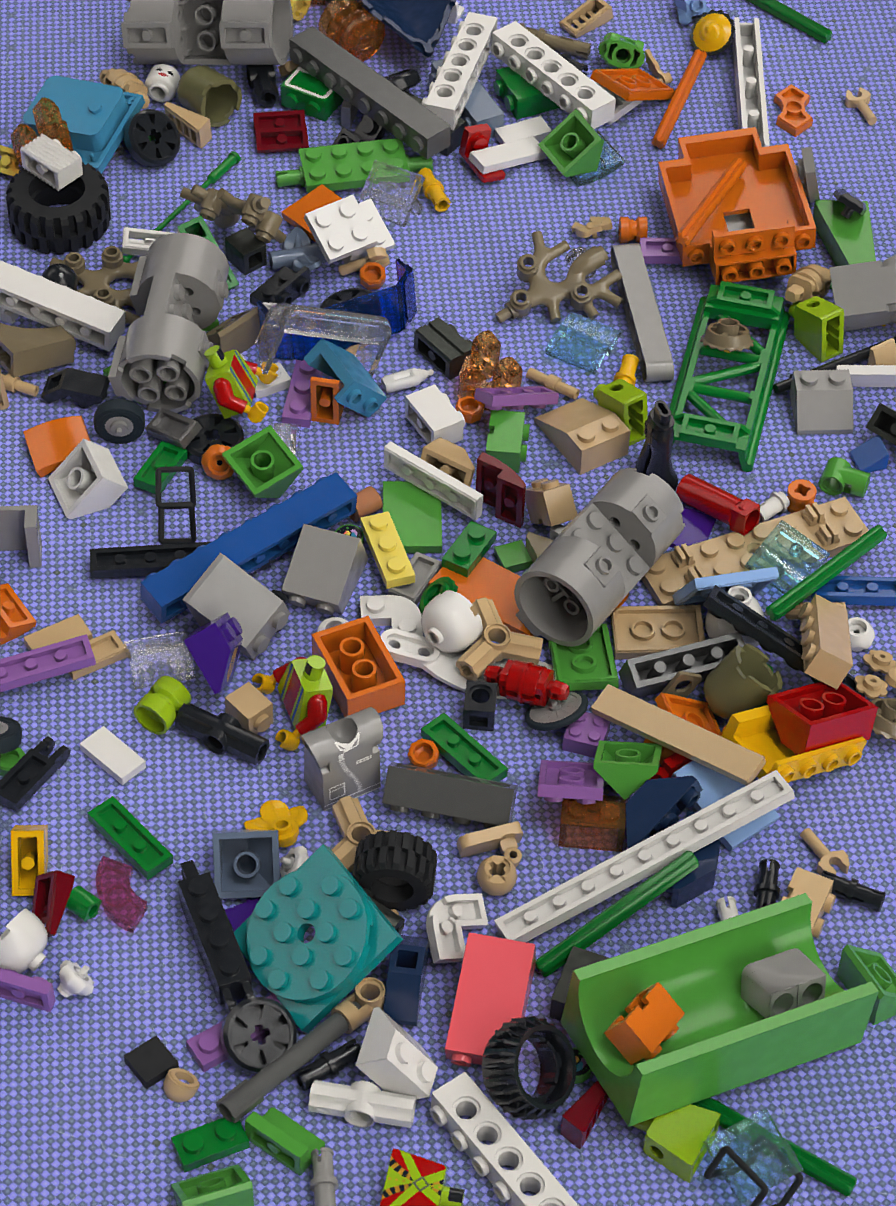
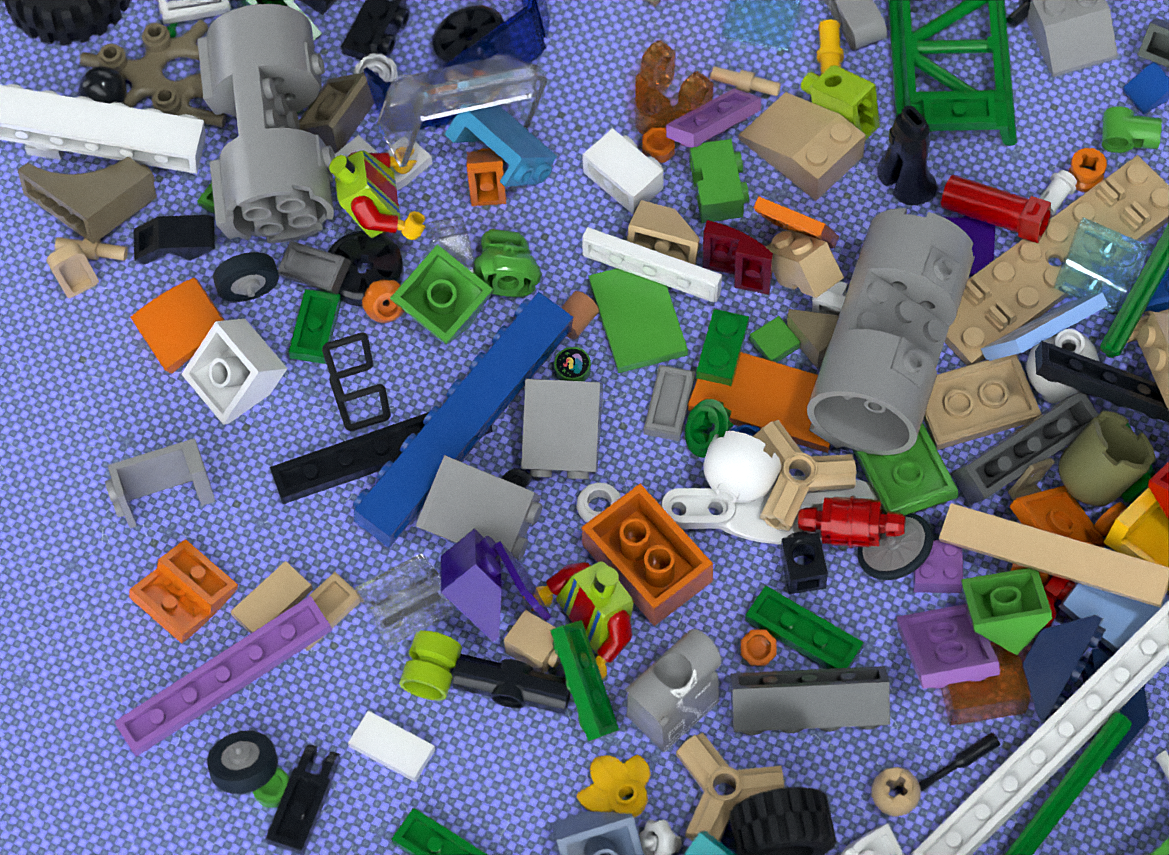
camera: 10 degrees left, 15 degrees up
(252, 657) = (522, 581): none -> dark purple piece
(277, 739) = (584, 680): none -> green plate
(298, 401) = (449, 175): medium lavender plate -> none
(321, 457) = (507, 264): none -> bright green piece
(387, 550) = (626, 374): light yellow plate -> none
(392, 611) = (661, 455): white plate -> none
(404, 379) = (566, 120): white piece -> none
(442, 347) = (602, 64): pearl dark grey brick -> none
(502, 836) = (888, 738): tan piece -> none
(548, 466) = (795, 221): none -> orange tile
(560, 869) = (964, 759): none -> black piece

